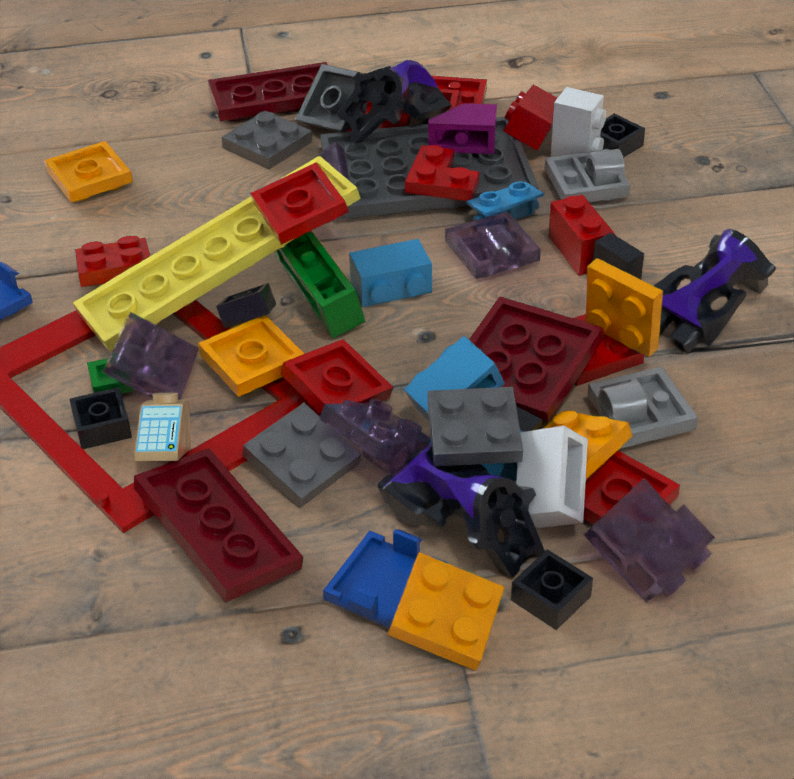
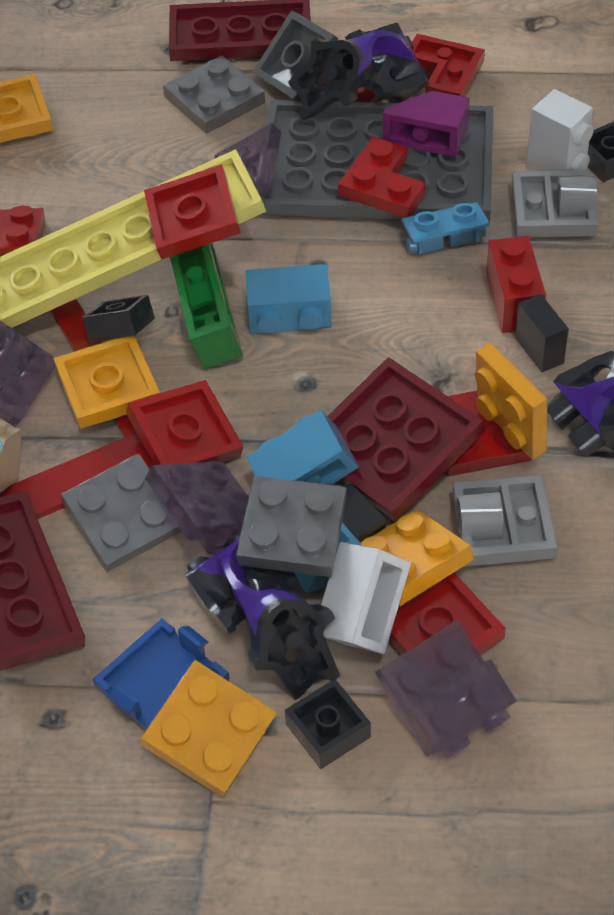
camera: 15 degrees right, 10 degrees up
(492, 245) = (414, 279): clear purple plate -> none
(531, 117) = (508, 113): red brick -> none

